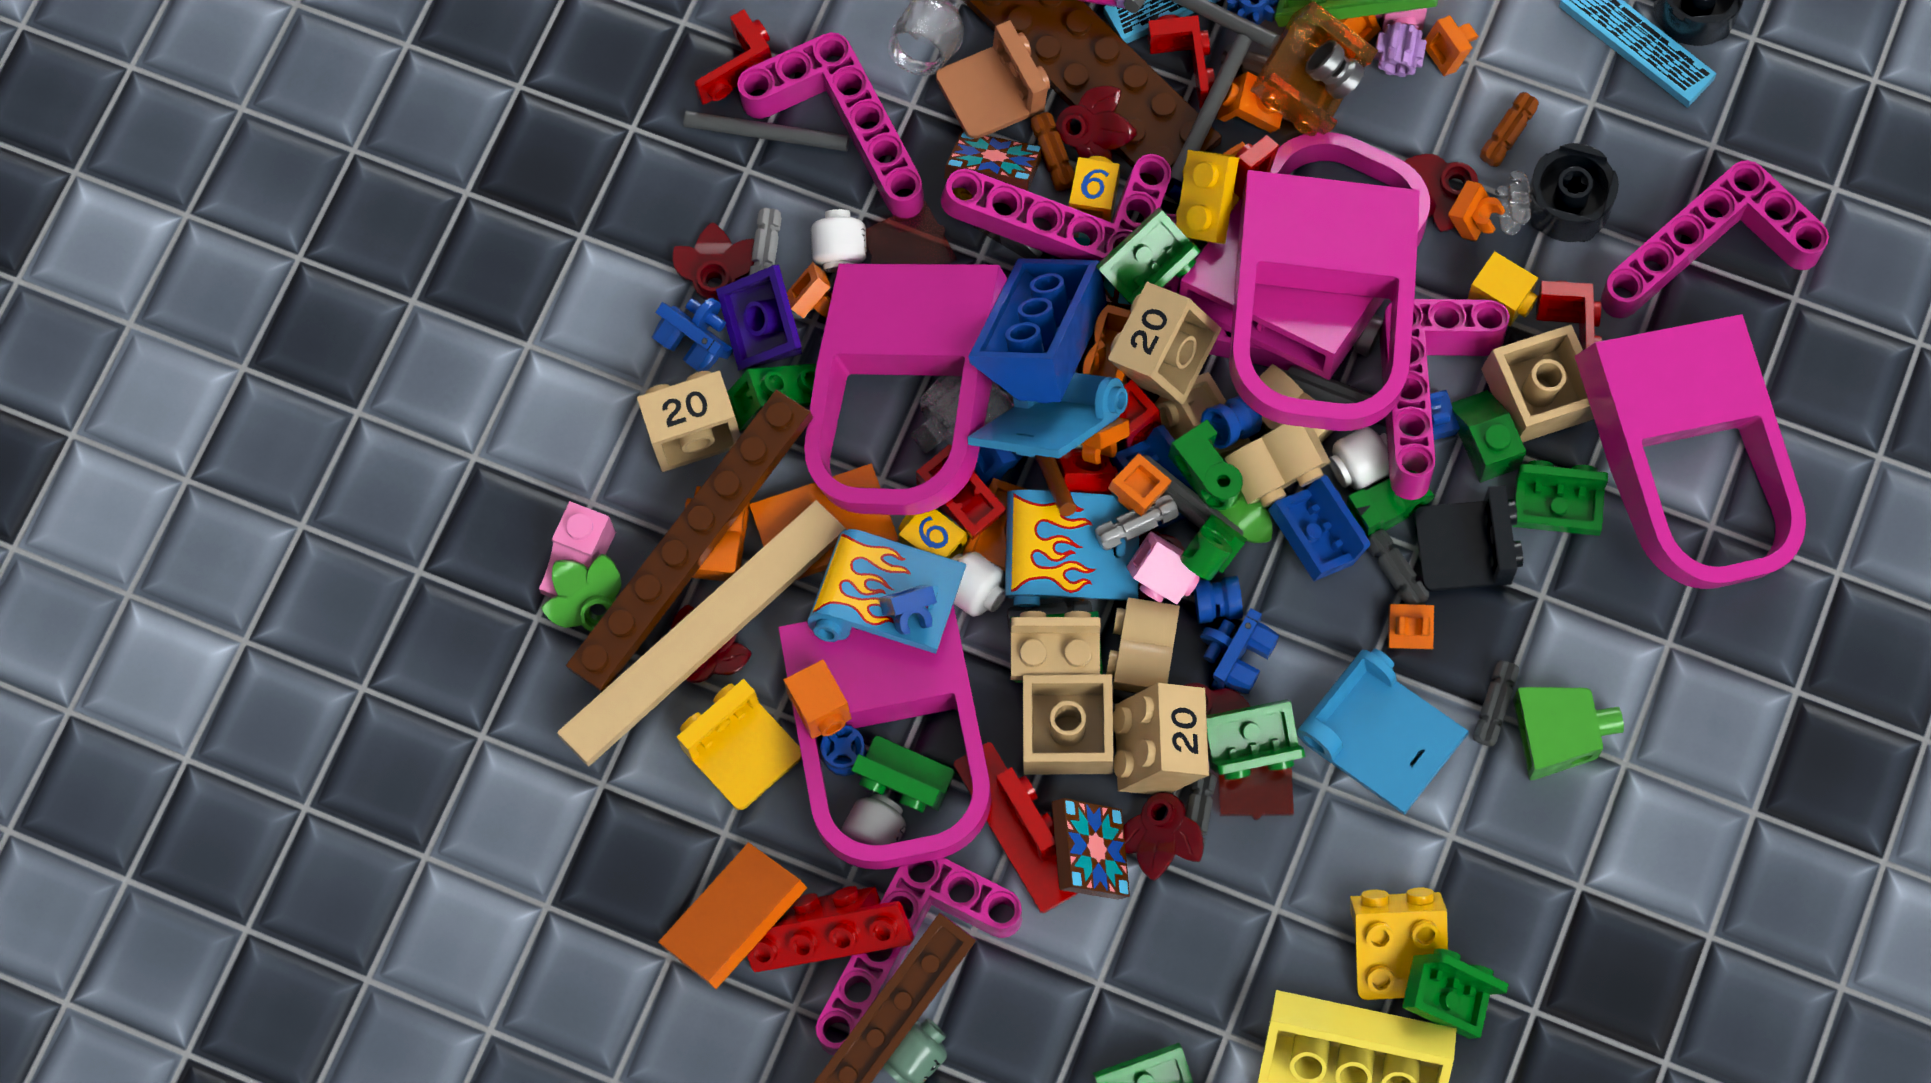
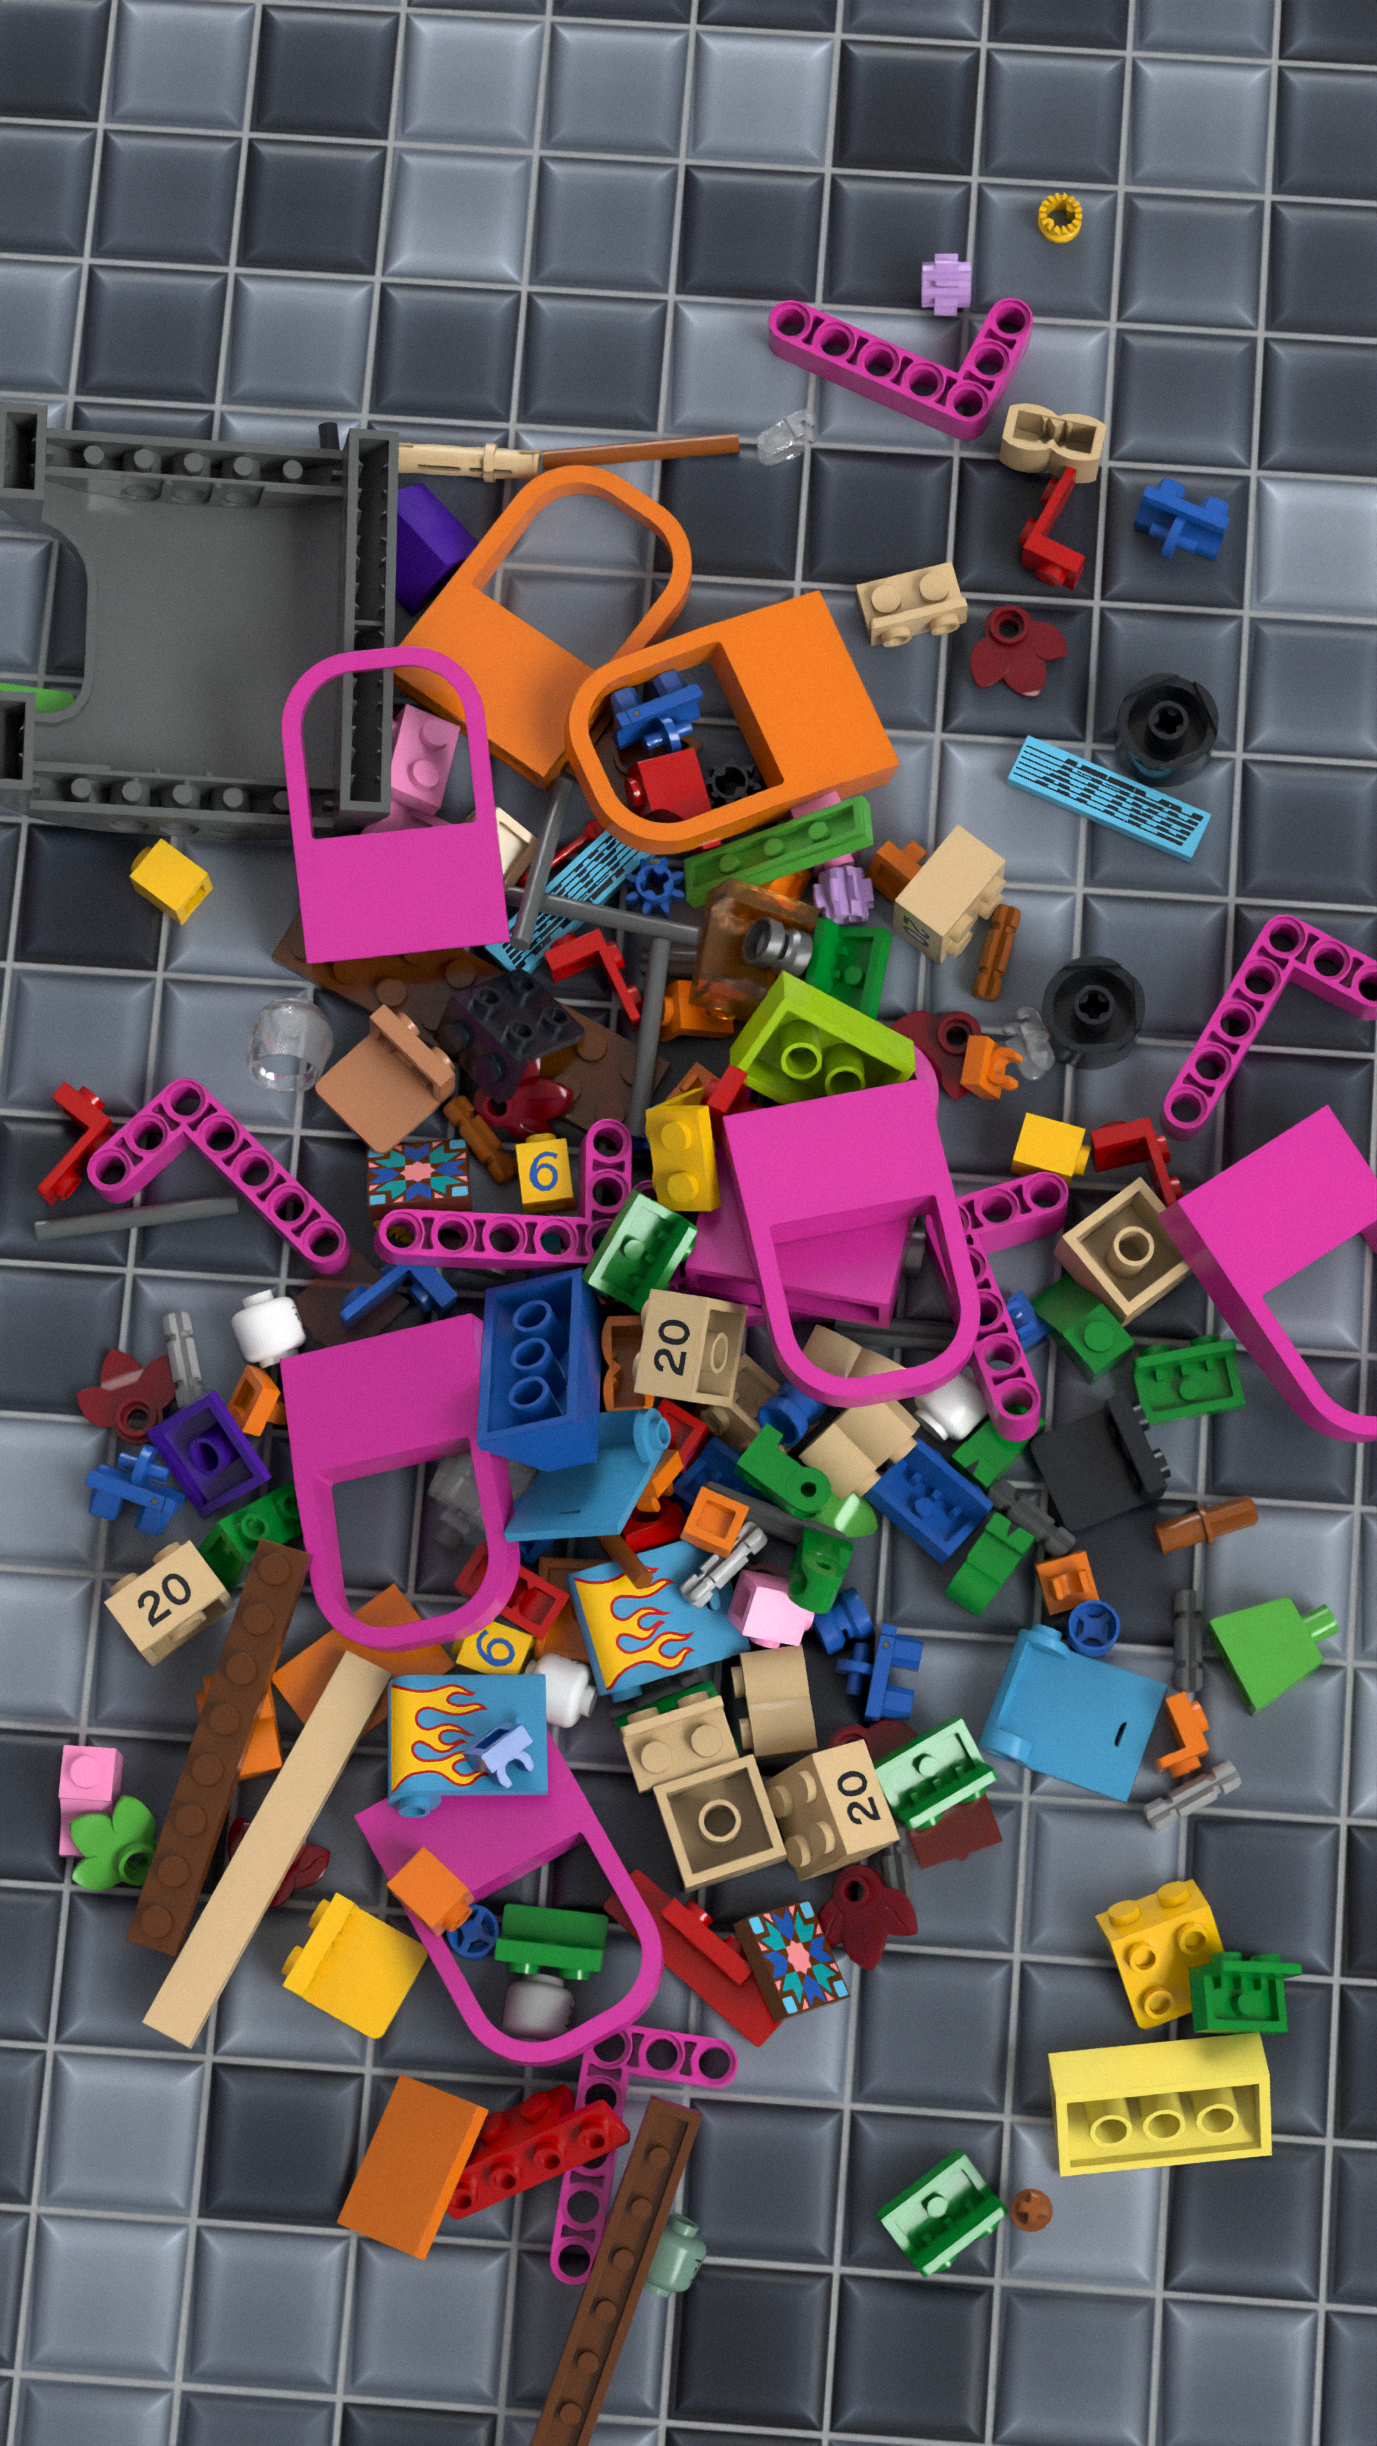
camera: 20 degrees left, 5 degrees up
(971, 240) = (426, 1289): none -> blue bracket
(1094, 62) = (502, 1028): none -> black bracket
(1340, 142) = (816, 1047): none -> lime brick
(1353, 592) = (989, 1565): none -> green leg
(1382, 107) = (849, 964): none -> green bracket
(1424, 660) = (1098, 1623): none -> blue wheel
(1460, 826) = (1192, 1796): none -> light grey axle
(1474, 767) = (1187, 1725): none -> orange bracket
(1485, 69) = (949, 896): none -> tan brick
(1539, 616) = (1205, 1524): none -> dark orange axle

